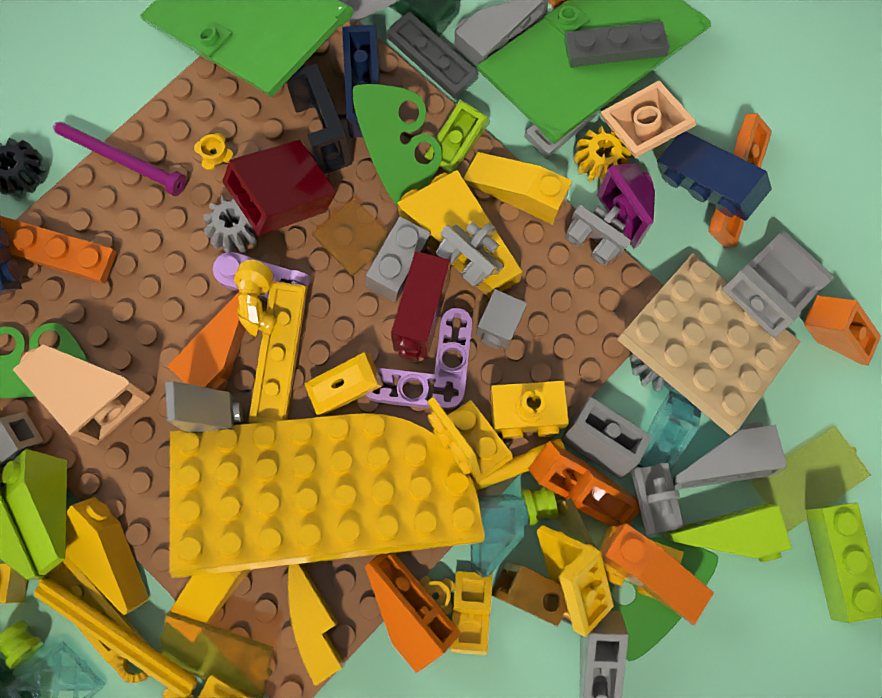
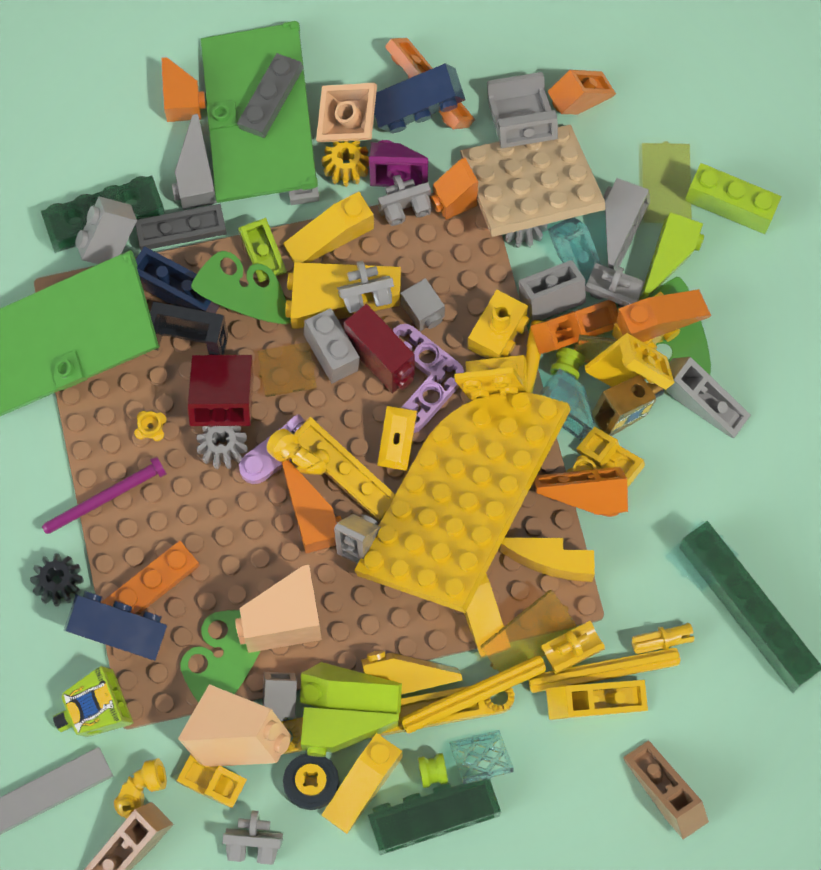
camera: 55 degrees left, 5 degrees down
(642, 272) = (455, 190): none -> orange slope

